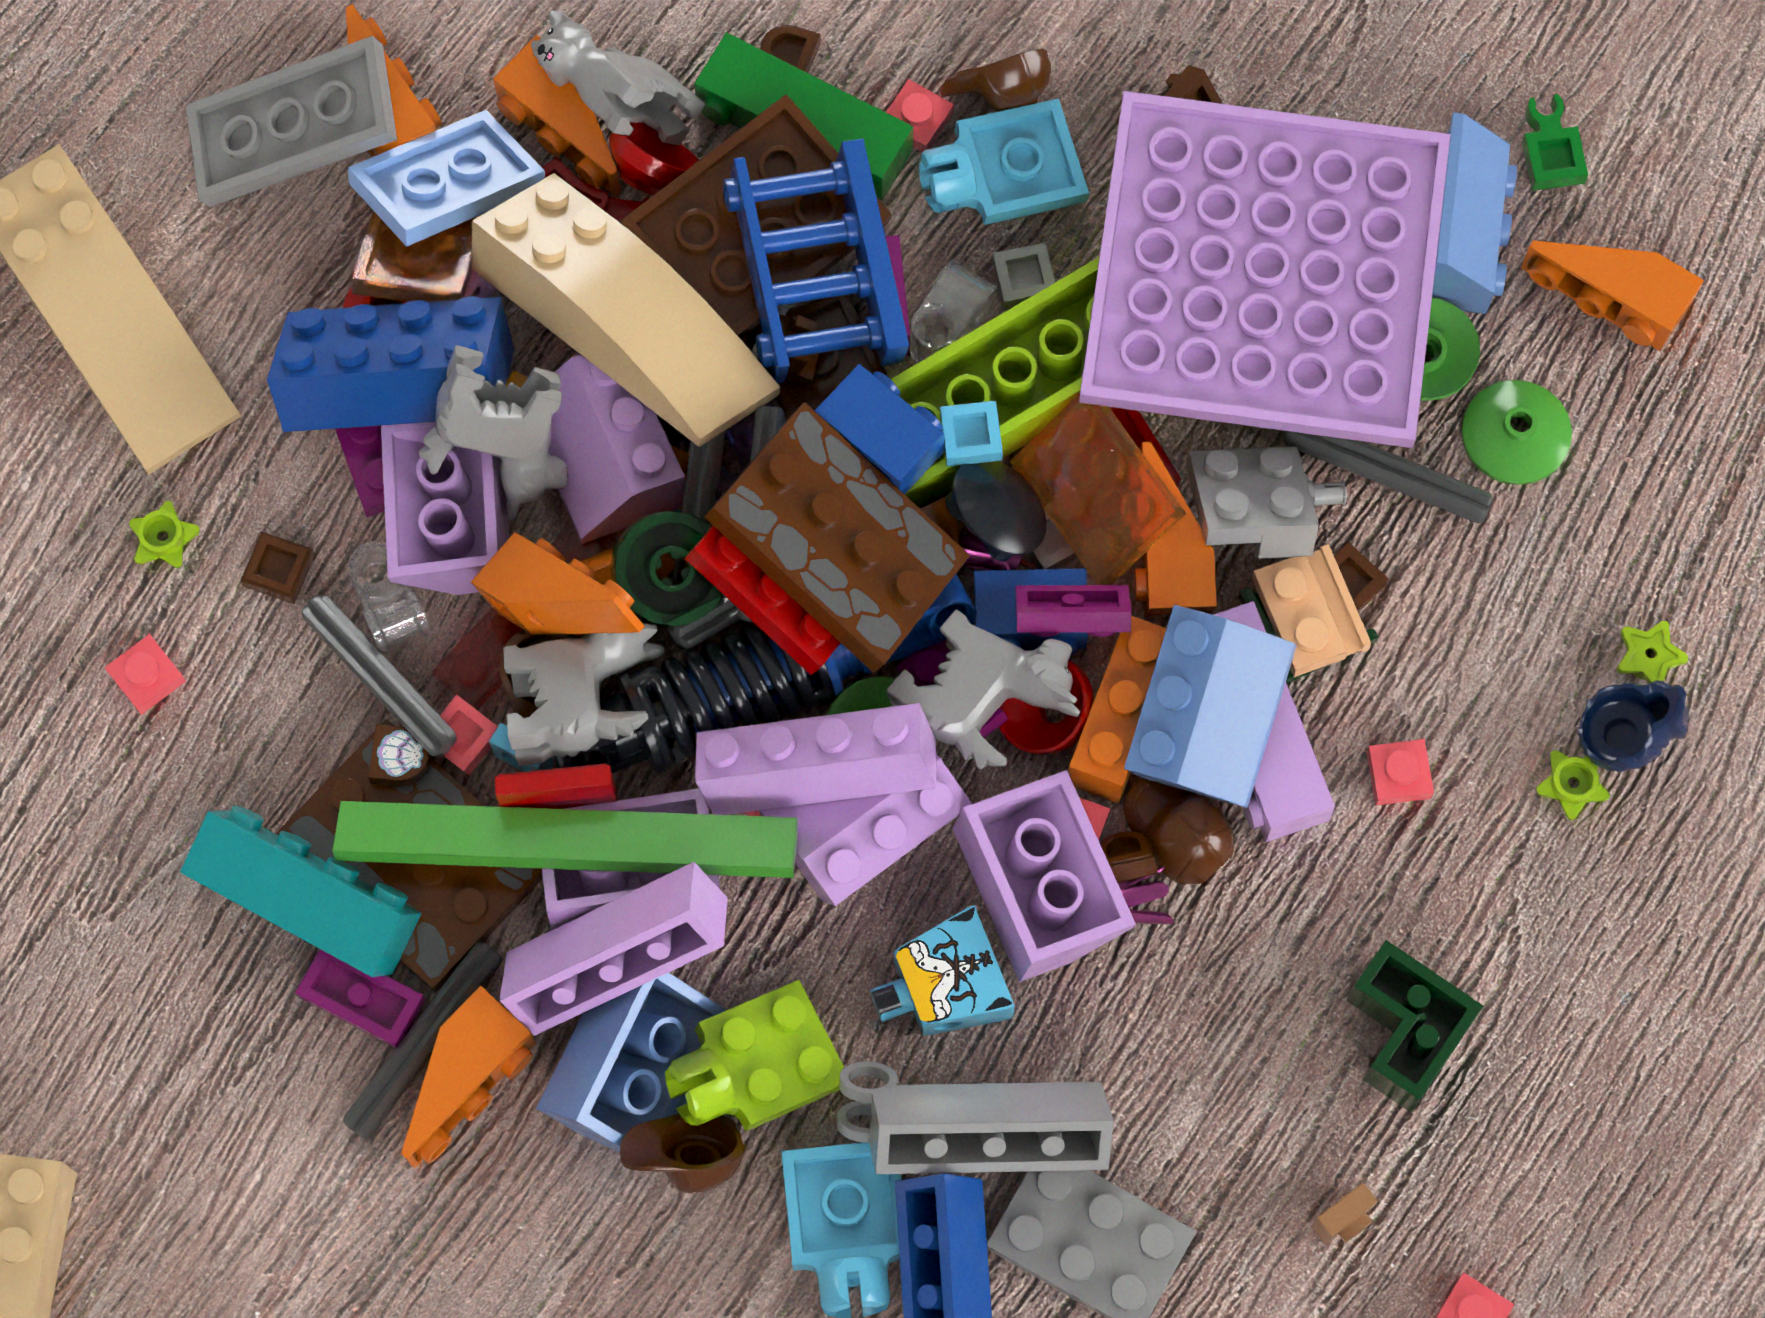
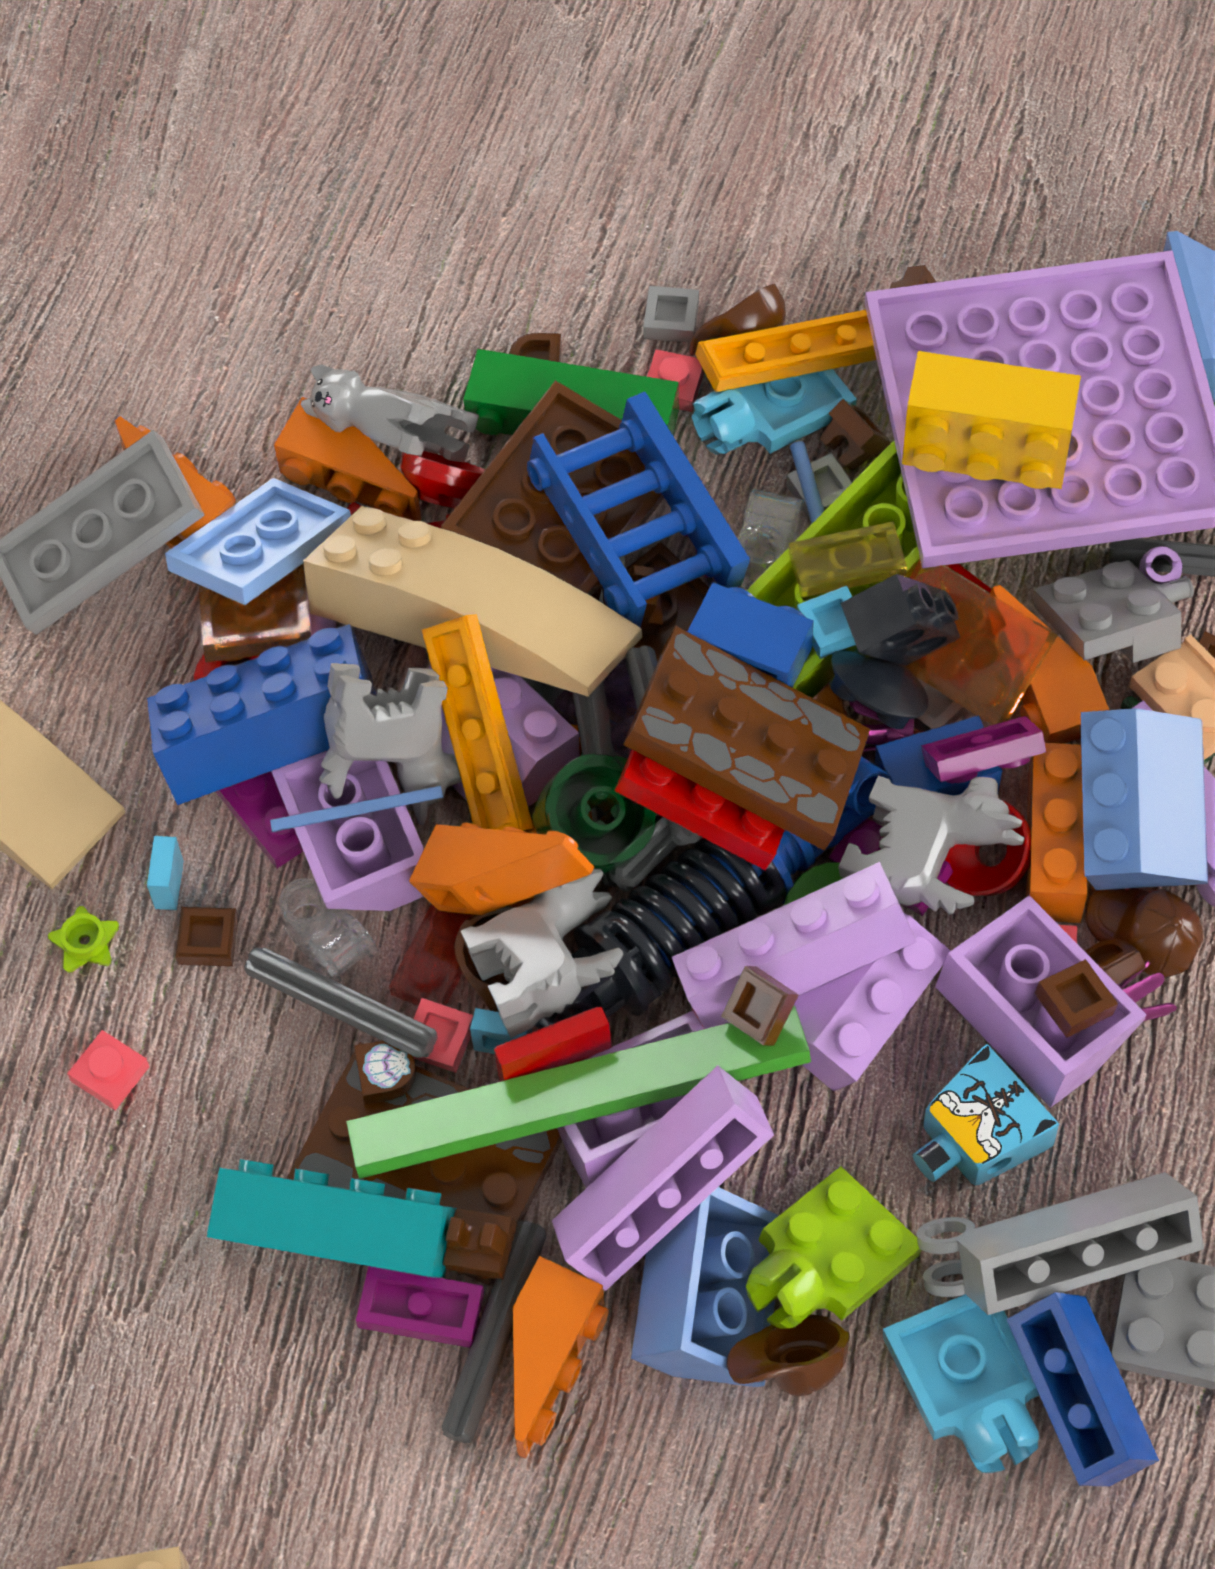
camera: 15 degrees left, 10 degrees down
(255, 494) = (165, 873): none -> medium azure tile
(431, 953) = (479, 1243): none -> reddish brown tile
(448, 490) = (356, 808): none -> medium blue piece
(586, 444) = (477, 725): none -> light orange tile
(758, 810) = (759, 1005): none -> tile
(939, 43) = (671, 314): none -> light grey tile
(1008, 371) = (847, 559): none -> clear yellow tile
(1010, 266) = (807, 480): none -> medium blue piece
(1029, 123) = (787, 351): none -> light orange tile
(1033, 455) = (901, 620): none -> black brick
(1070, 890) = (1076, 998): none -> reddish brown tile
(1080, 225) = (861, 432): none -> reddish brown tile
(1186, 276) = (990, 420): none -> yellow brick
(1336, 457) = (1161, 552): none -> lavender pin

